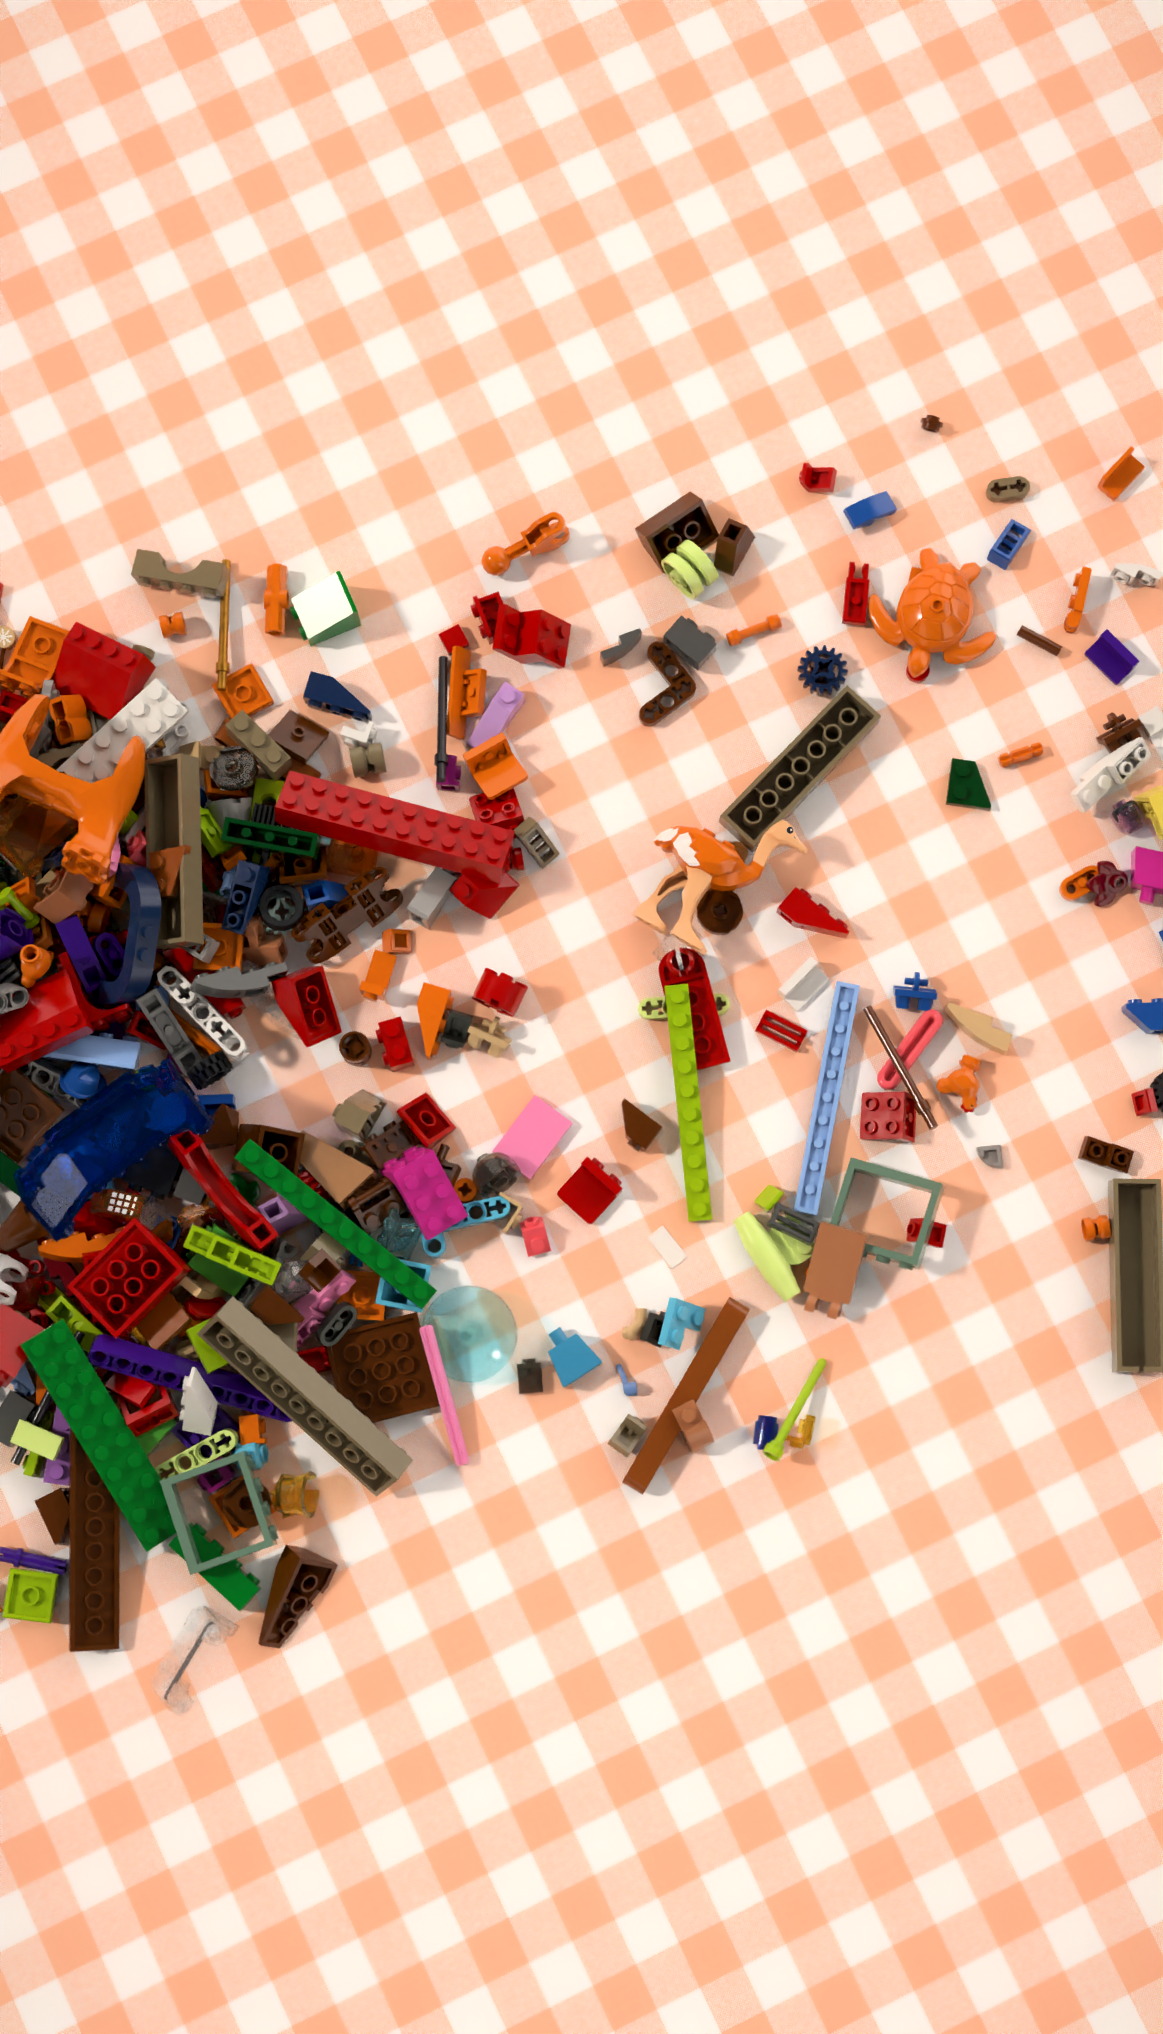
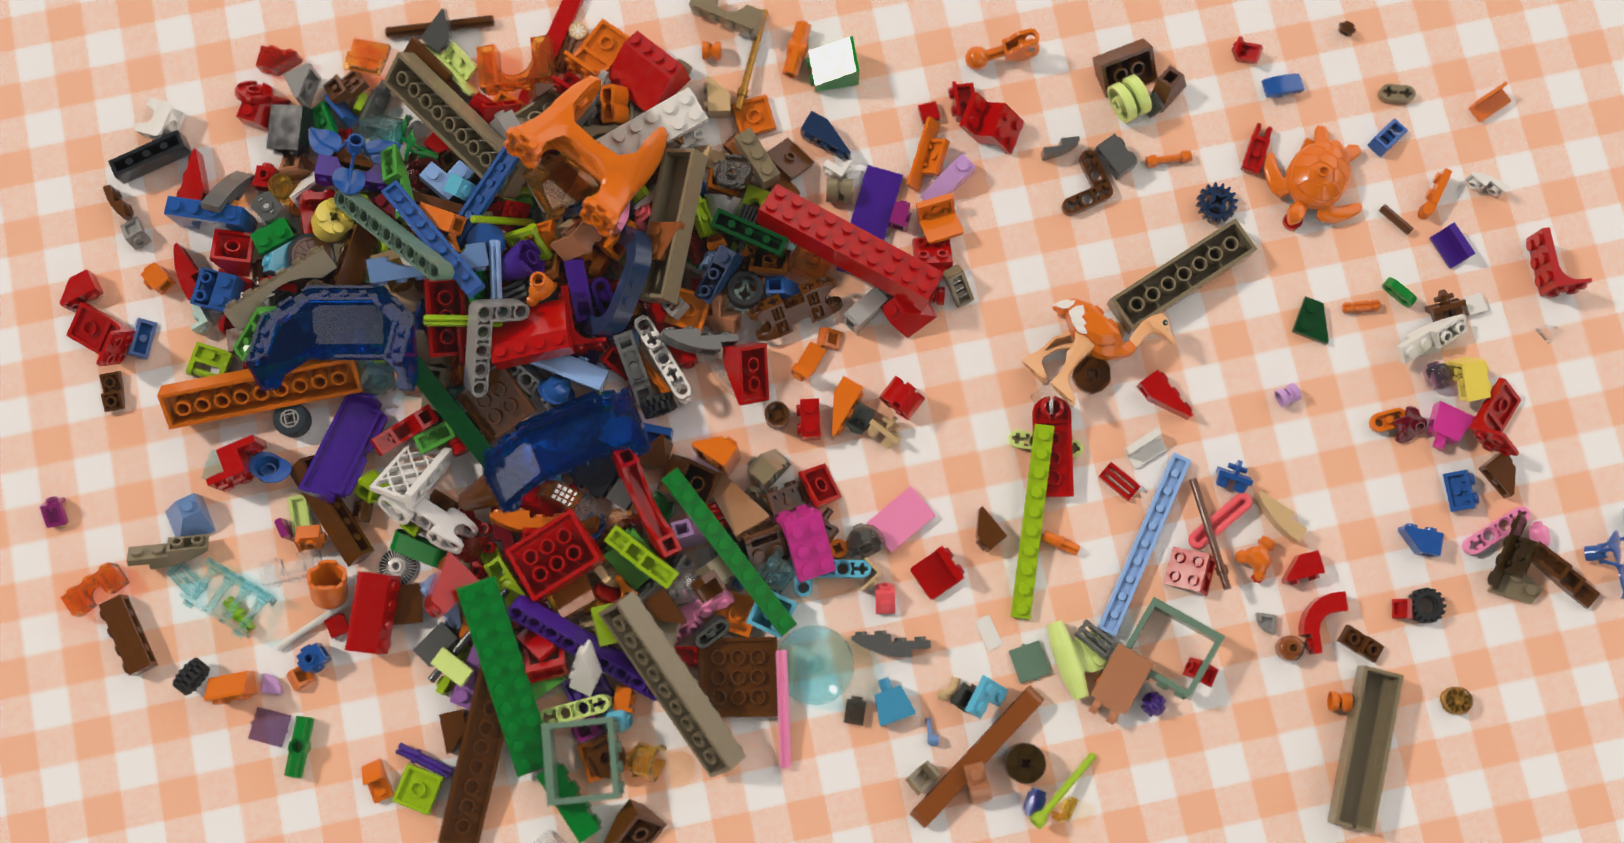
camera: 15 degrees right, 0 degrees up
(195, 683) = (718, 100): none -> tan slope
(220, 1296) = (623, 586): none -> orange bar
(295, 1110) = (718, 452): none -> orange slope
(413, 764) = (876, 202): none -> dark purple tile
(441, 757) = (898, 201): black bar -> none
(543, 1291) = (882, 644): none -> dark grey slope
(723, 568) = (1157, 105): none -> dark grey tile
(723, 1269) = (1029, 661): none -> sand green piece
(728, 1120) = (1060, 543): none -> orange axle
(743, 1375) = (1036, 763): none -> dark brown brick
(768, 1198) = (1079, 613): lime slope -> none
(879, 1283) = (1153, 703): none -> dark purple gear
(956, 881) = (1288, 394): none -> lavender wheel
(1015, 1178) = (1289, 648): none -> dark orange head
(1020, 1079) = (1304, 566): none -> red slope
(1043, 1134) = (1315, 613): none -> red arch
(1061, 727) = (1399, 292): none -> green beam

